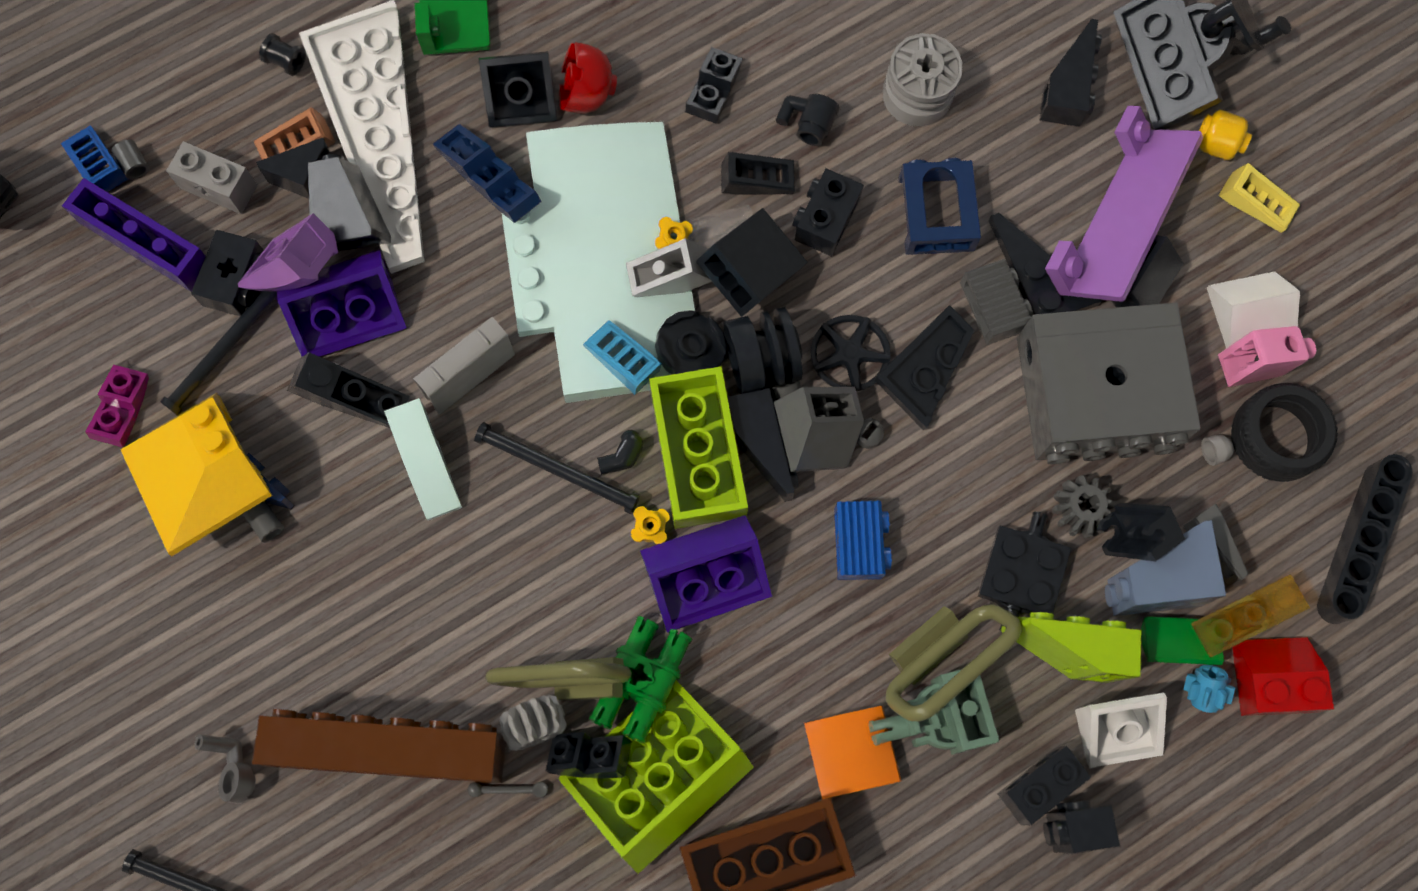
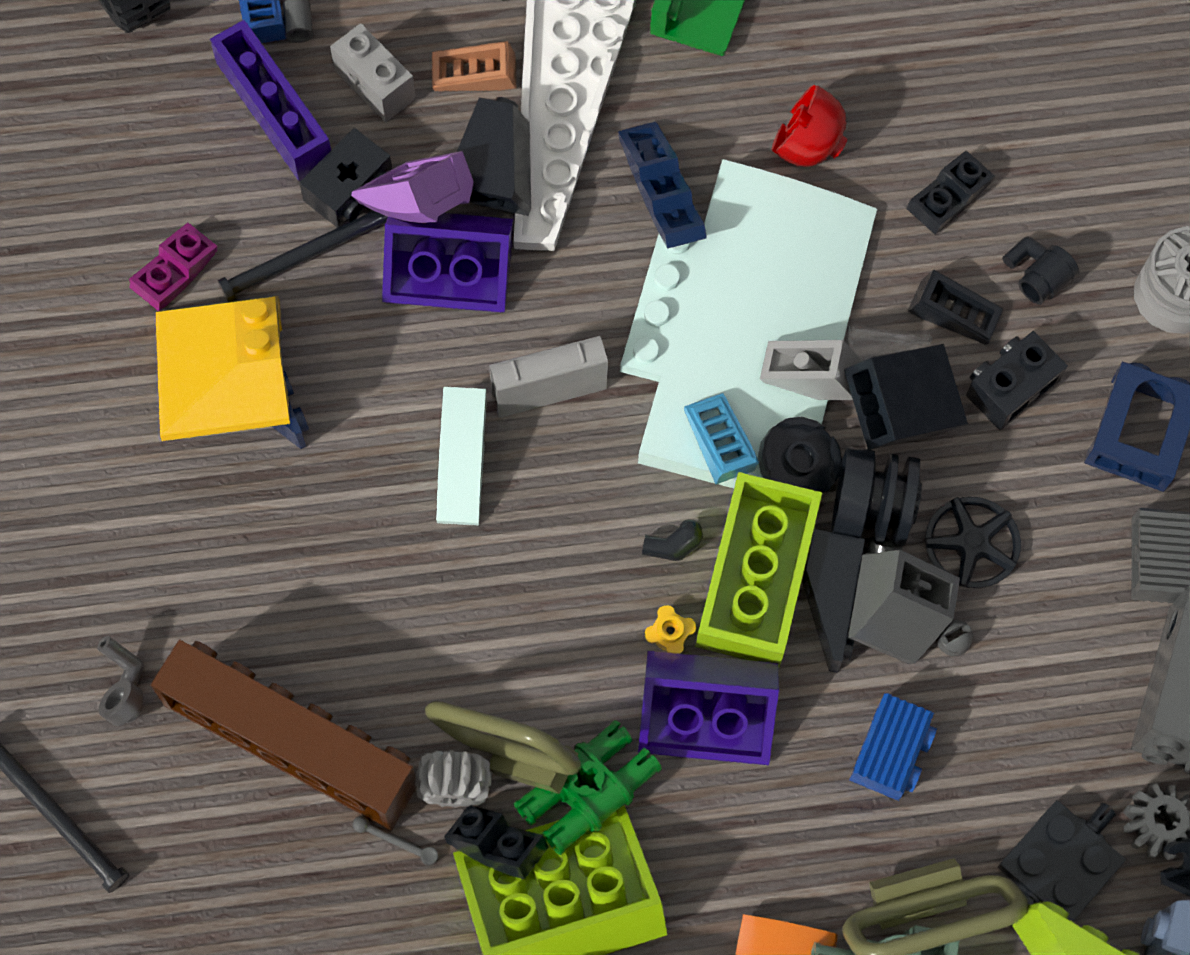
camera: 25 degrees right, 5 degrees down
(264, 522) = (268, 449): dark grey hinge -> none
(290, 167) = (457, 95): black slope -> none
(343, 390) = (410, 348): black slope -> none
(518, 89) = (735, 110): black slope -> none
(558, 468) = (639, 573): black bar -> none
(668, 227) = (832, 322): yellow plate -> none
(924, 367) = (1051, 591): black wing -> none

